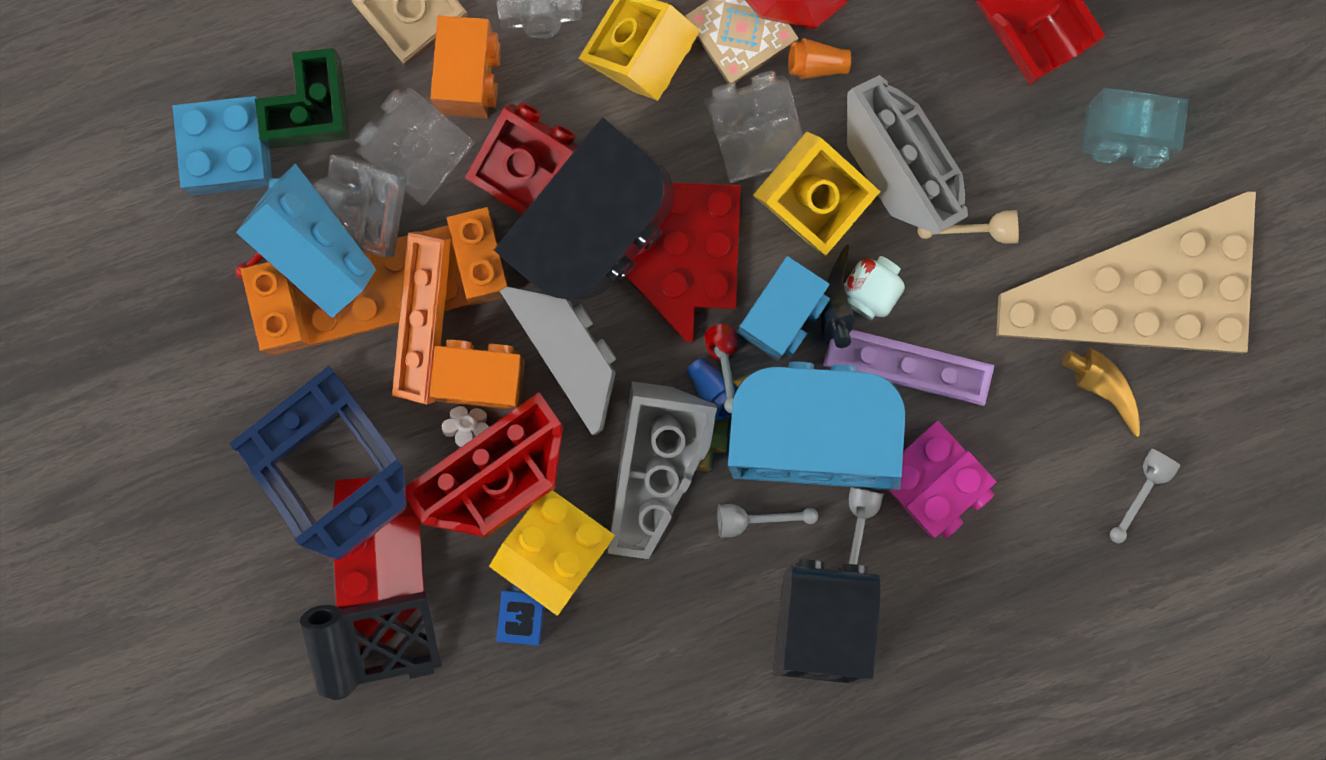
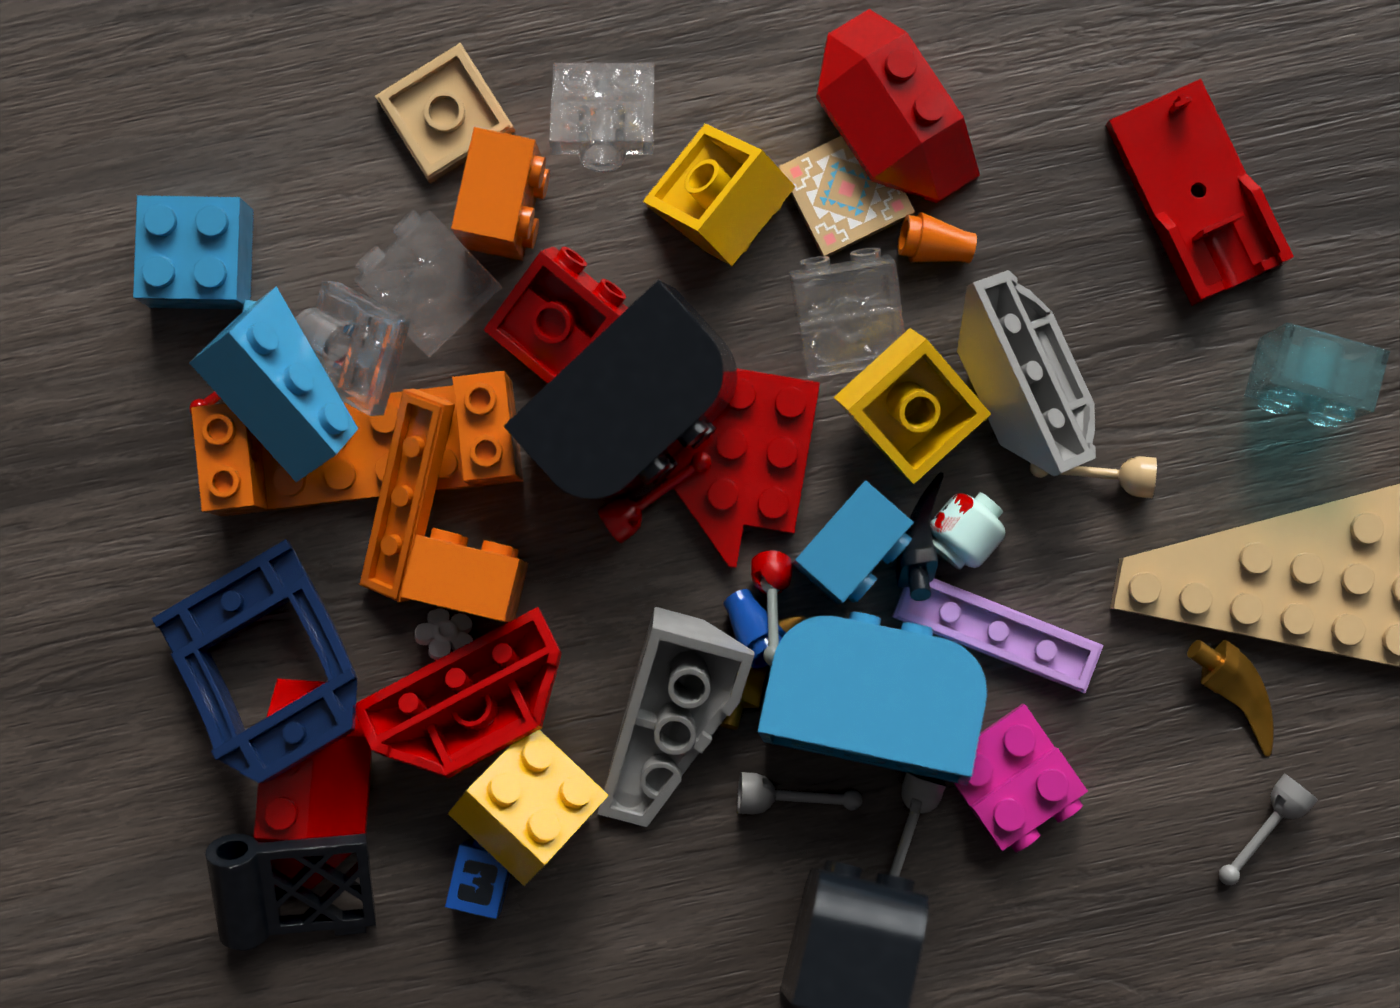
camera: 15 degrees right, 0 degrees up
(315, 111) = (310, 226): dark green brick -> none
(568, 350) = (581, 562): light grey wedge -> none
(601, 311) = (624, 516): none -> red hinge

